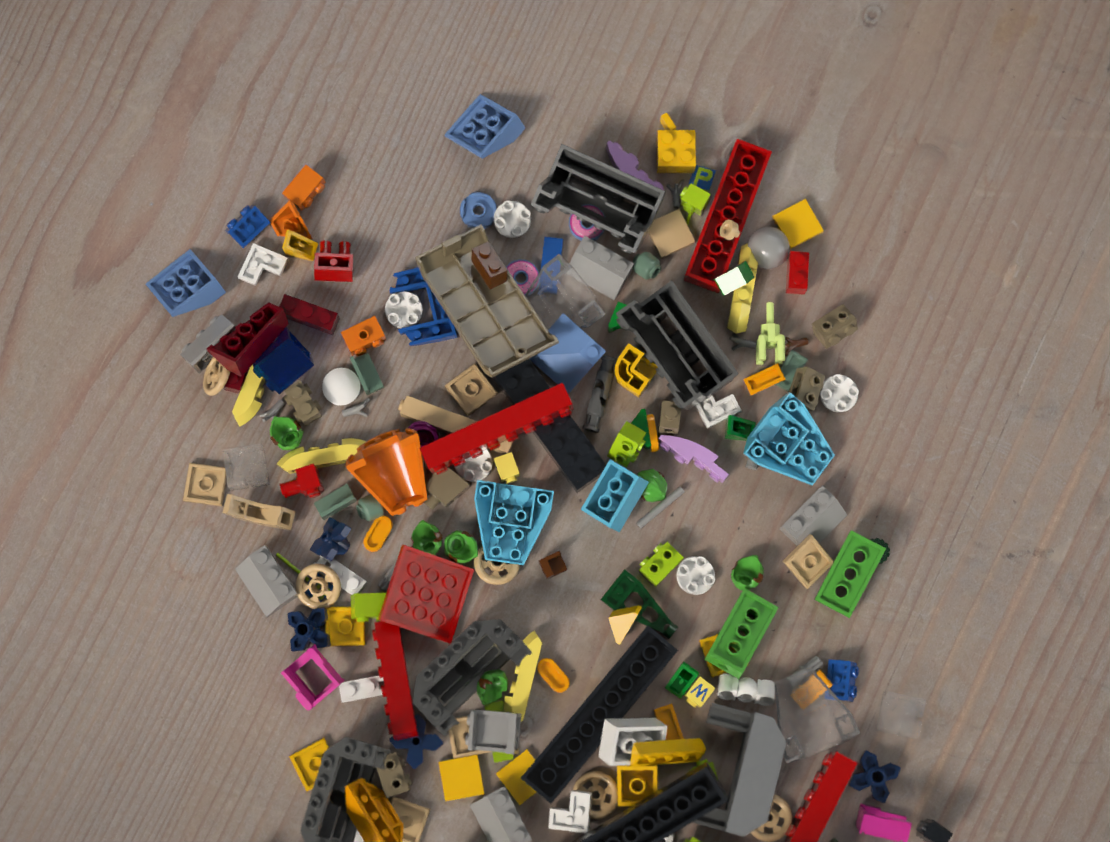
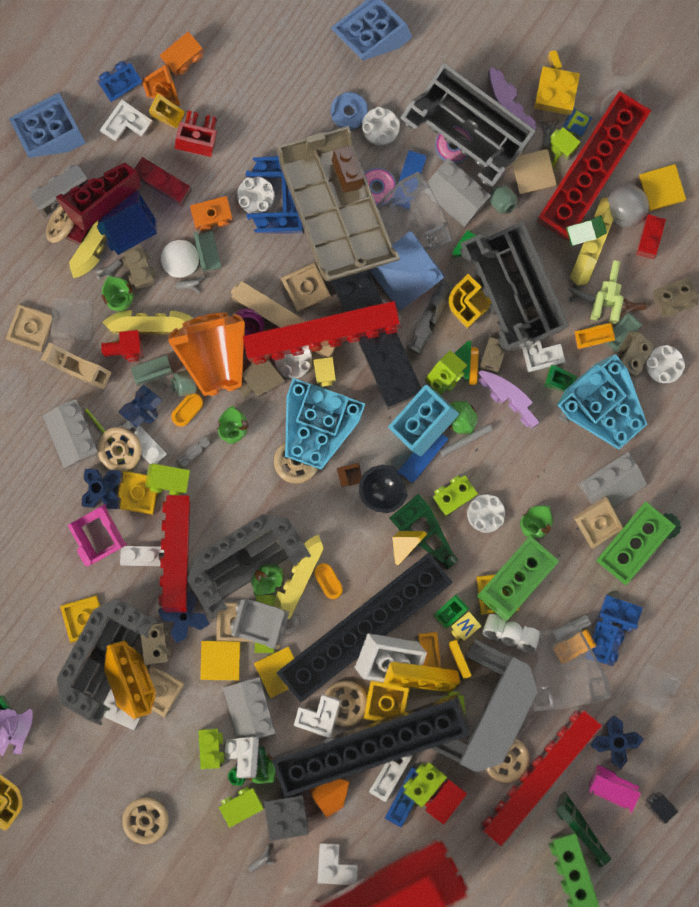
camera: 15 degrees right, 5 degrees up
(426, 594) = (221, 478): red plate -> none
(460, 546) = (264, 439): bright green hair -> none
(588, 572) = (382, 489): none -> black cylinder
(616, 540) = (416, 464): none -> blue tile
(700, 726) = (459, 659): none -> yellow tile
(729, 230) = (591, 181): tan tile -> none
(849, 646) = (620, 612): none -> blue bracket

